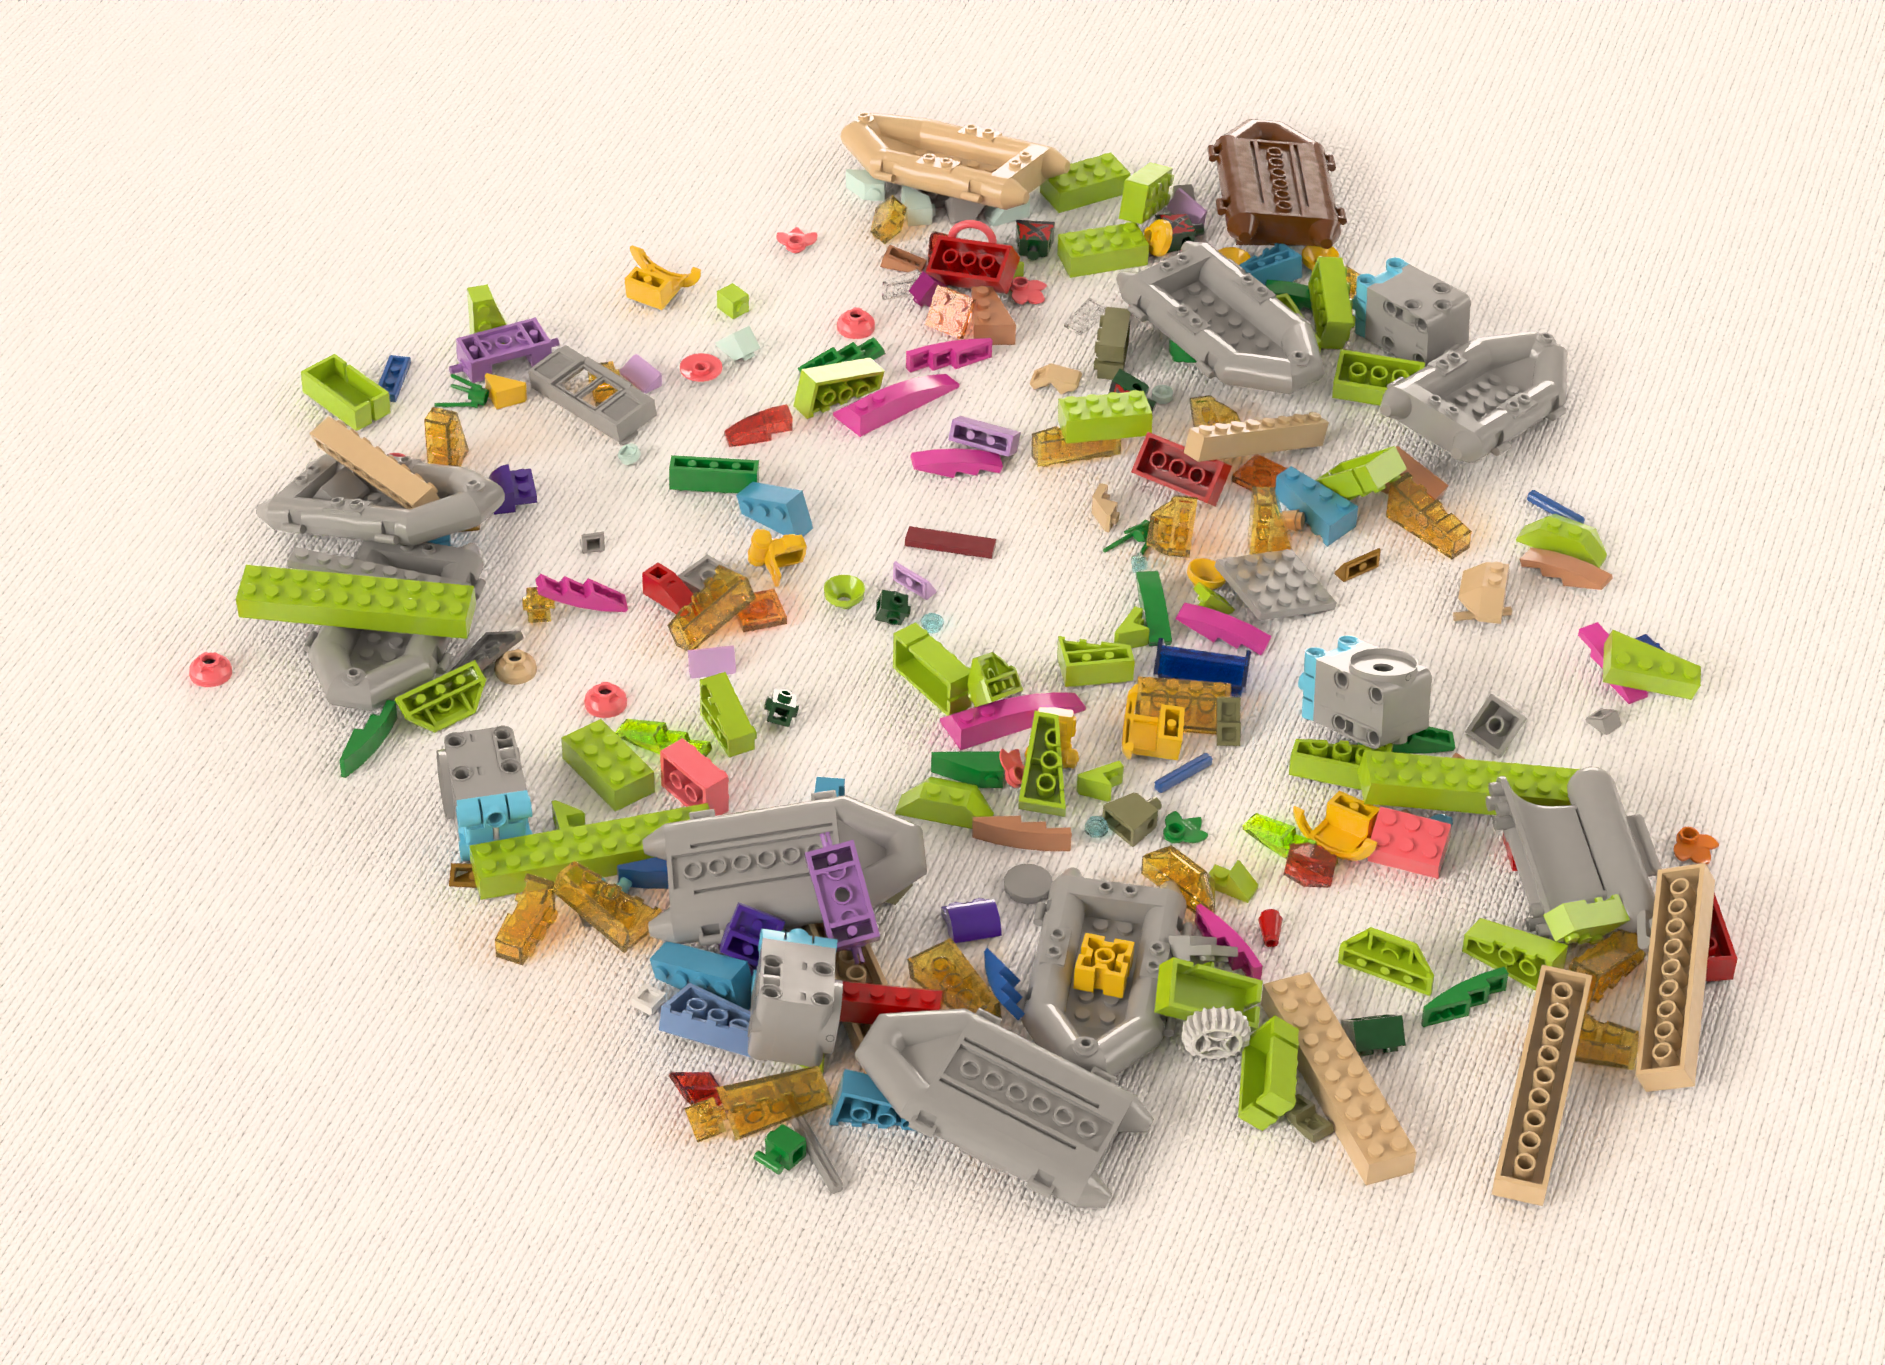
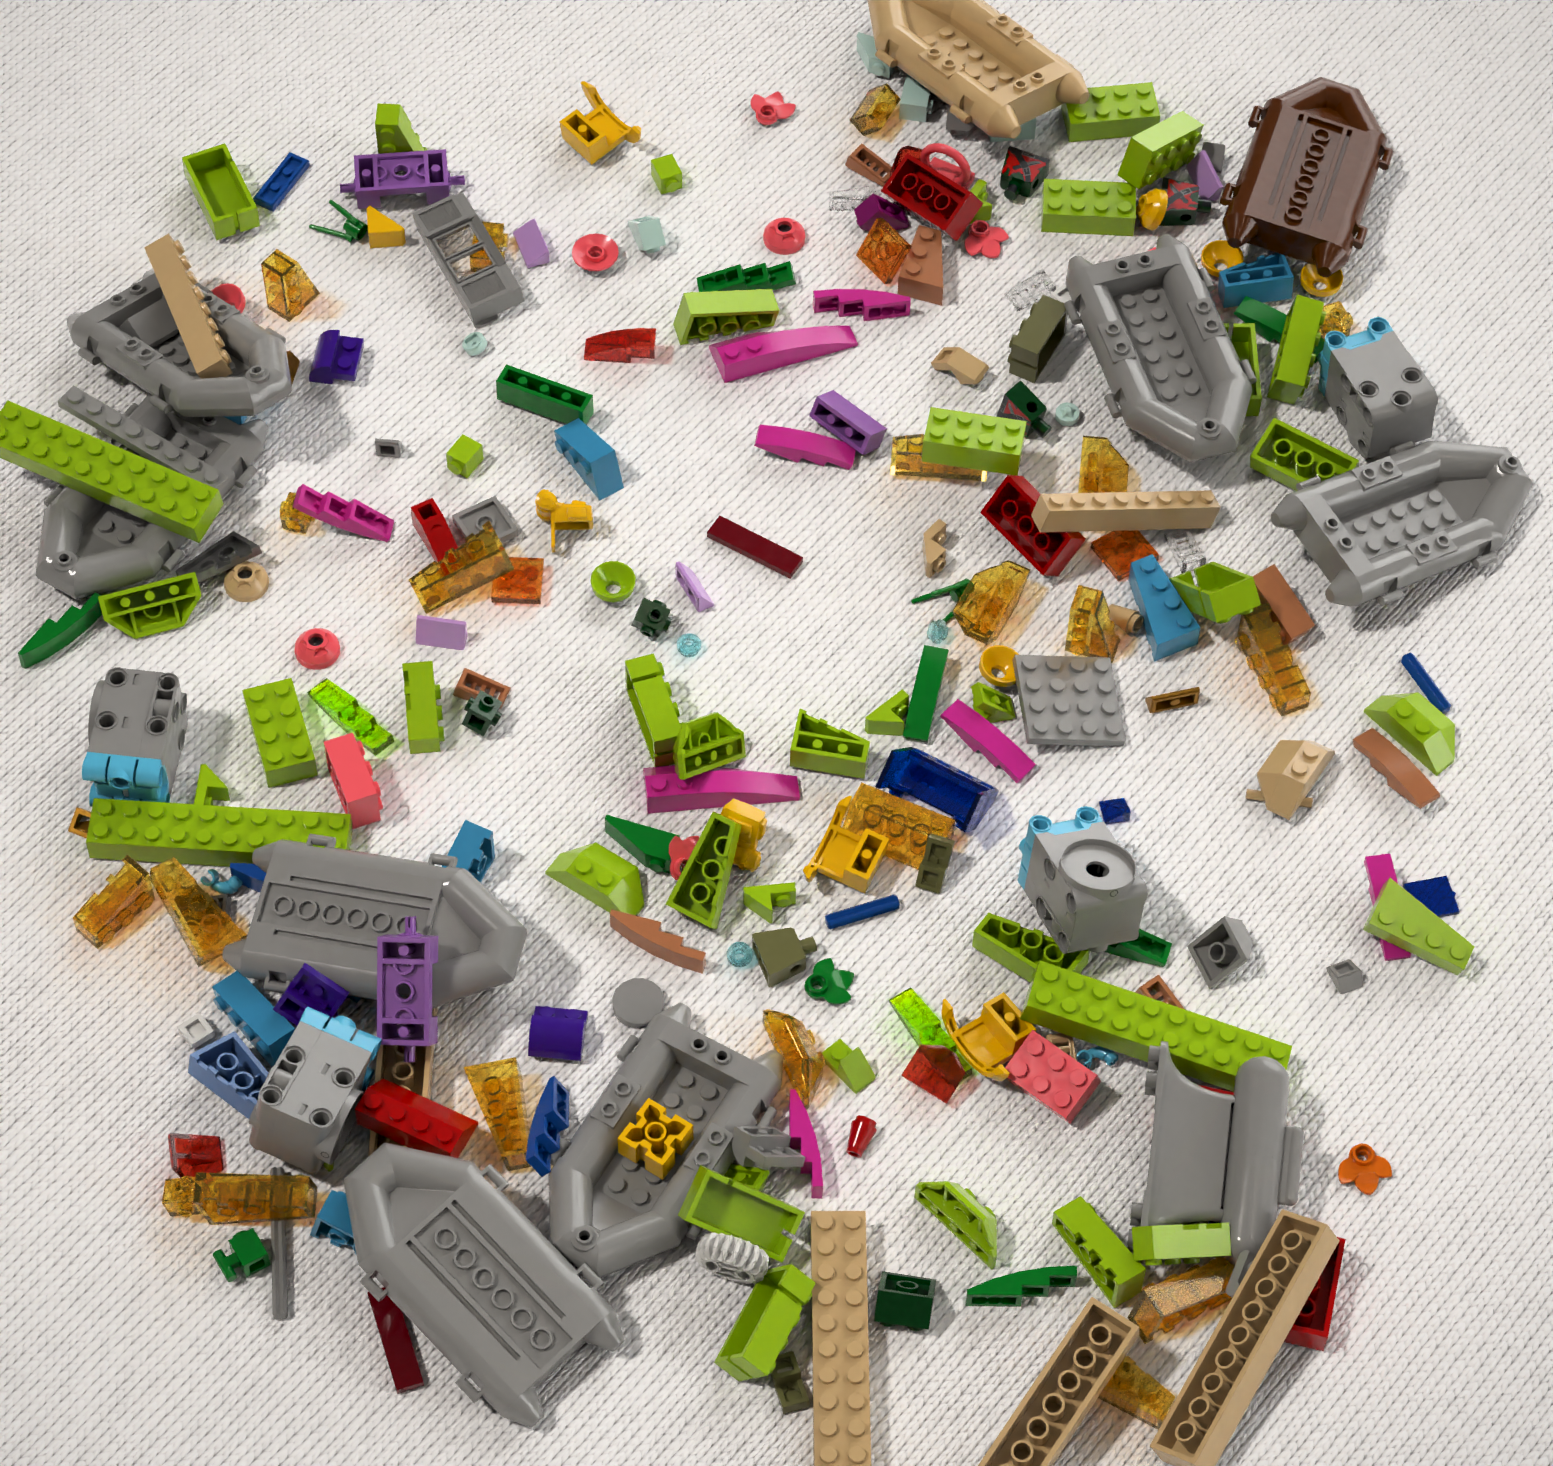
camera: 20 degrees right, 15 degrees up
(664, 533) = (464, 456): none -> lime brick
(757, 692) = (475, 679): none -> nougat slope
(948, 1178) = (396, 1344): none -> dark red tile
(1311, 463) = (1185, 564): none -> clear slope

